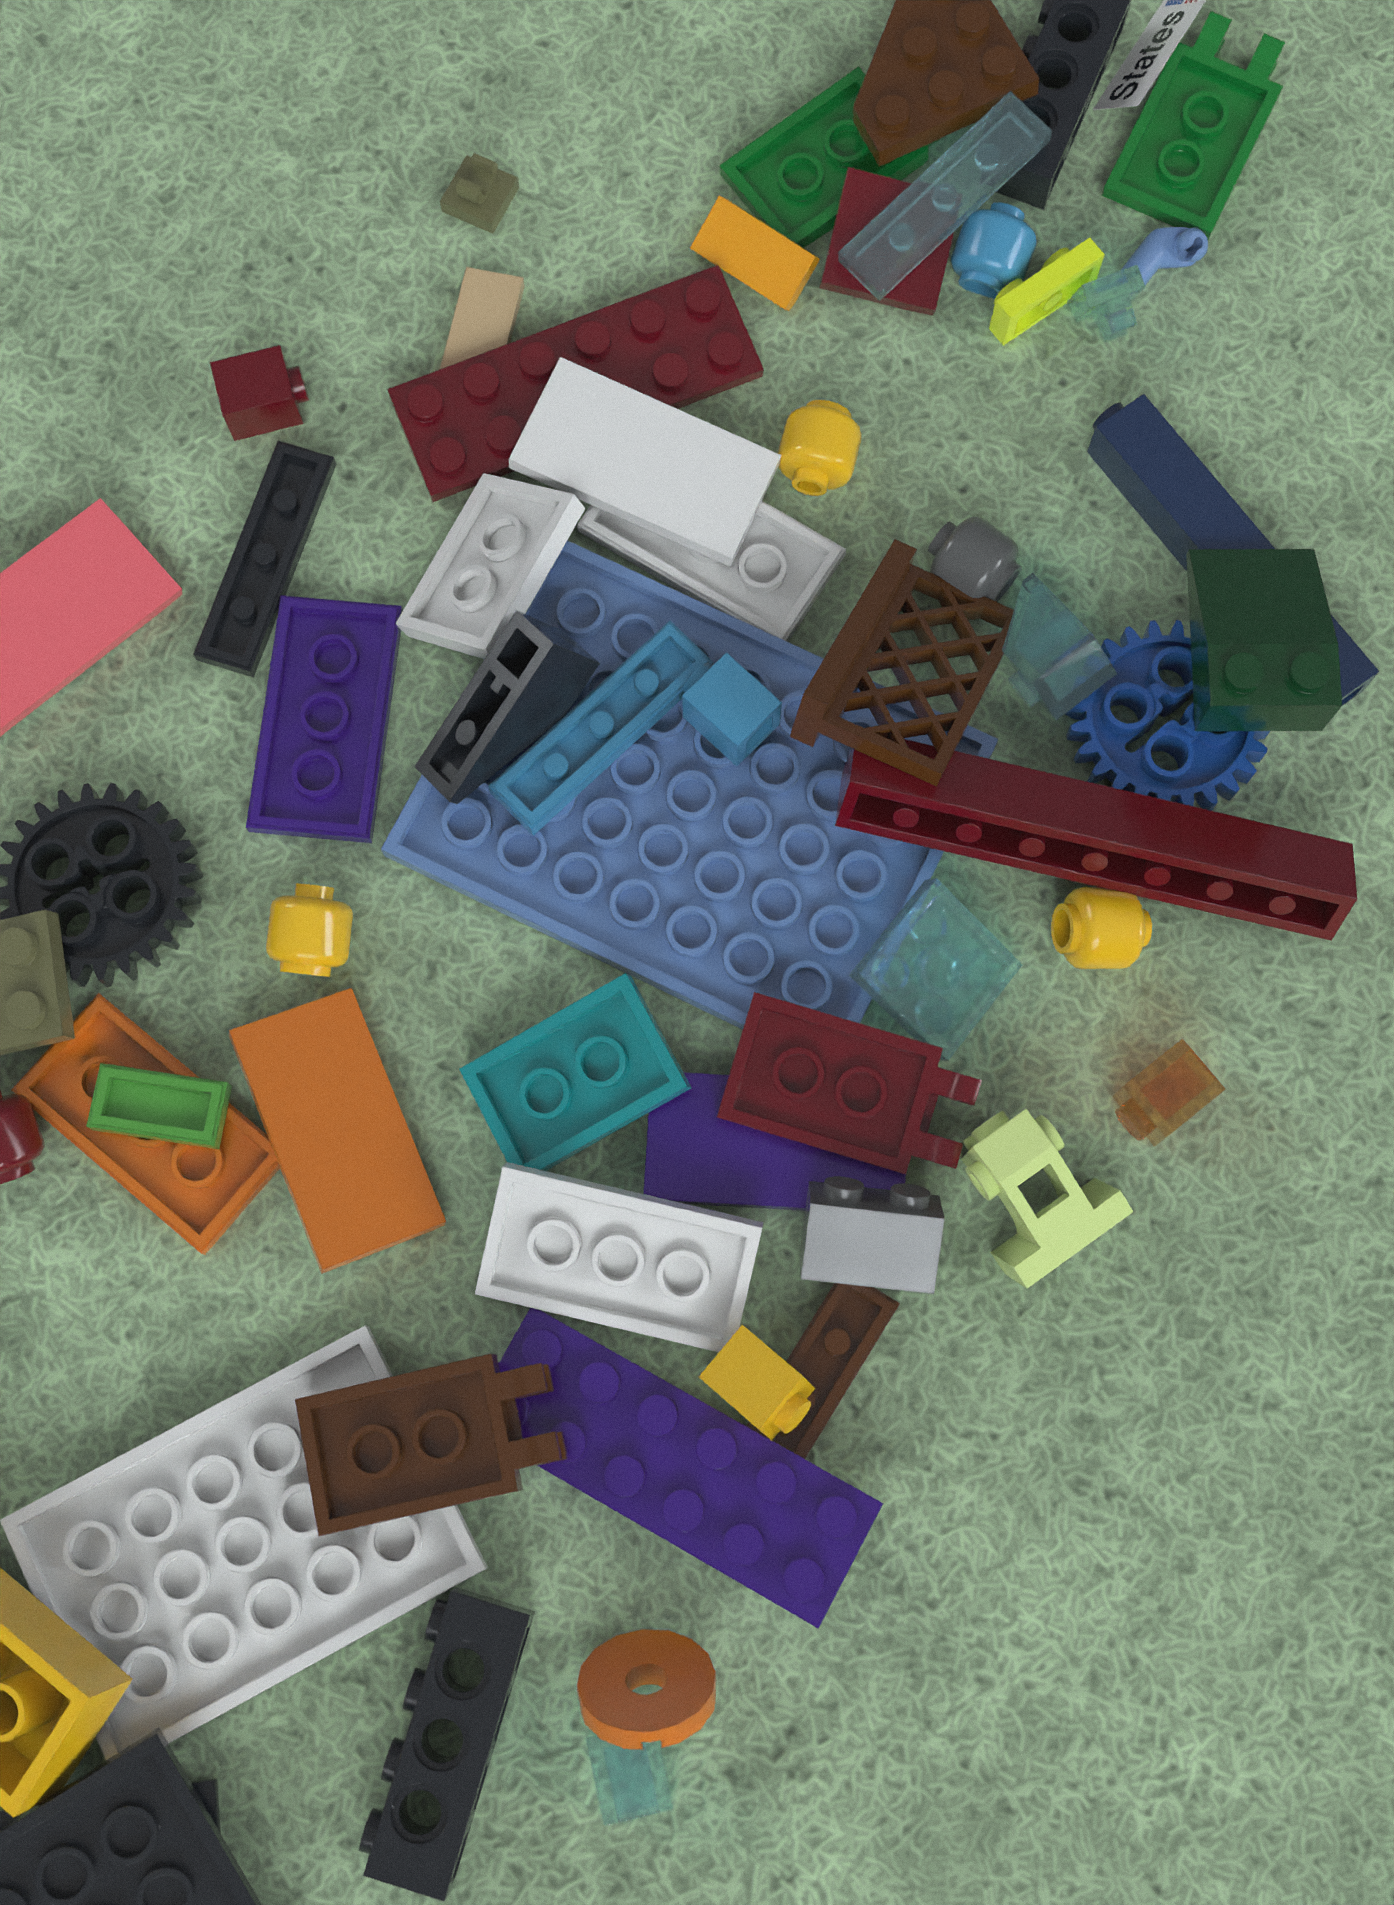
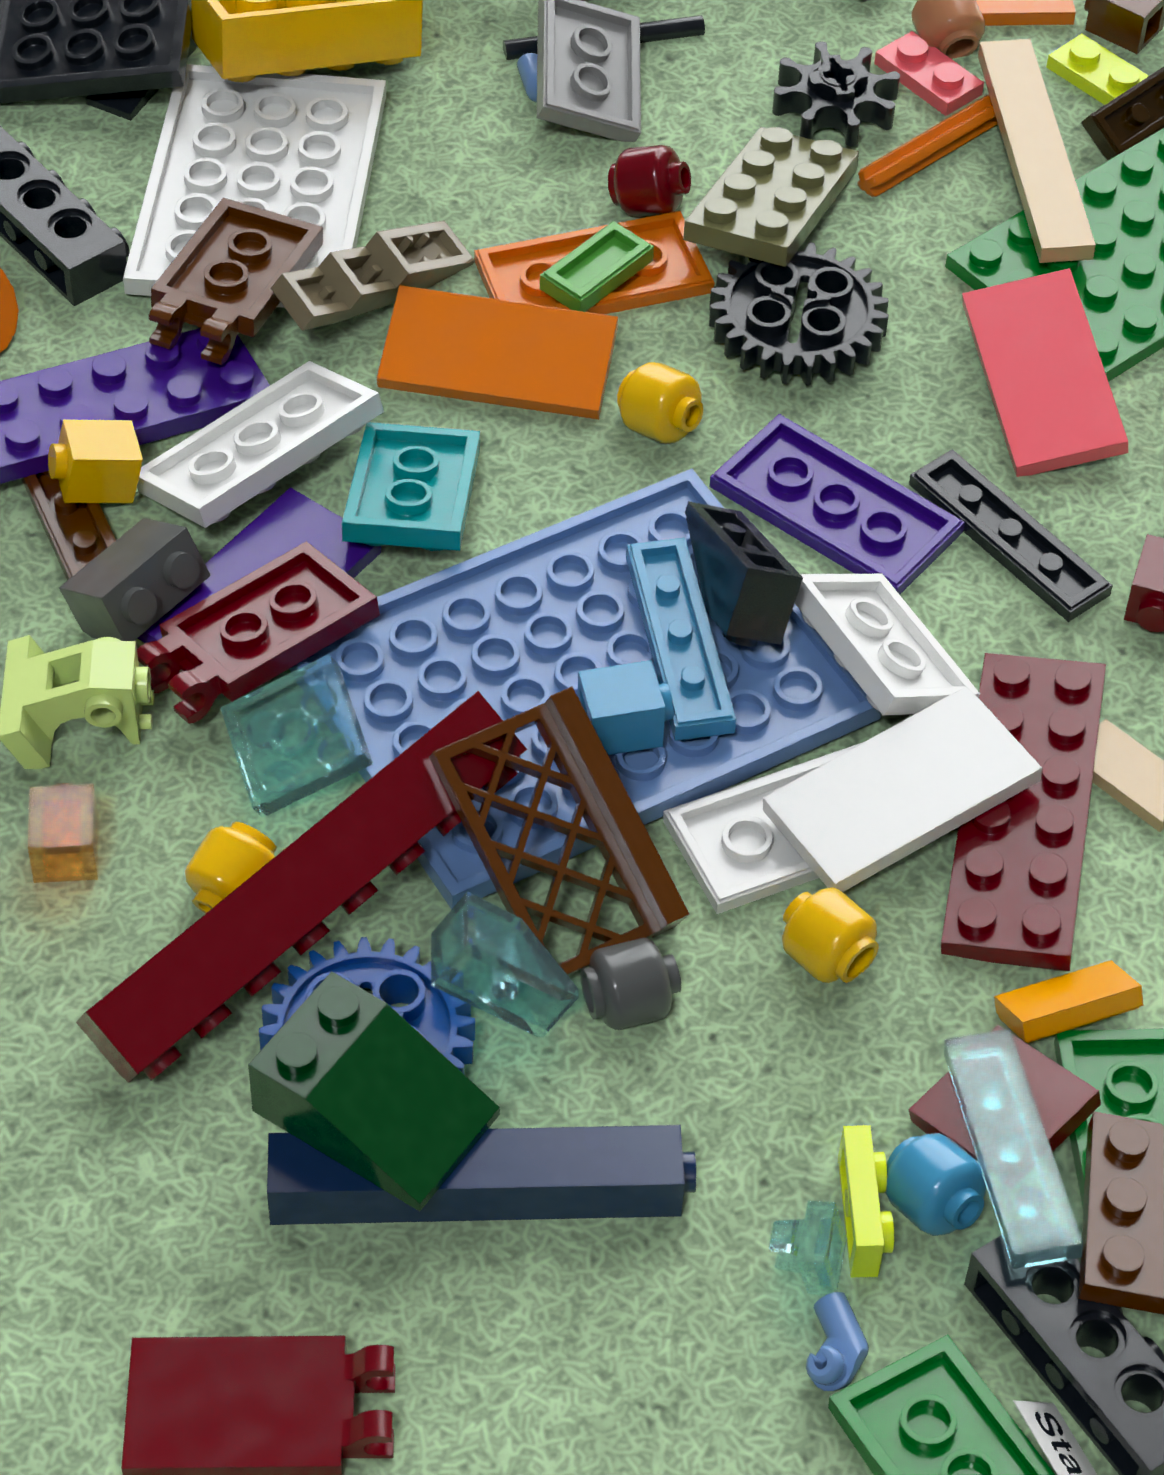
camera: 120 degrees right, 25 degrees down
(321, 1310) = (370, 275): none -> dark tan slope

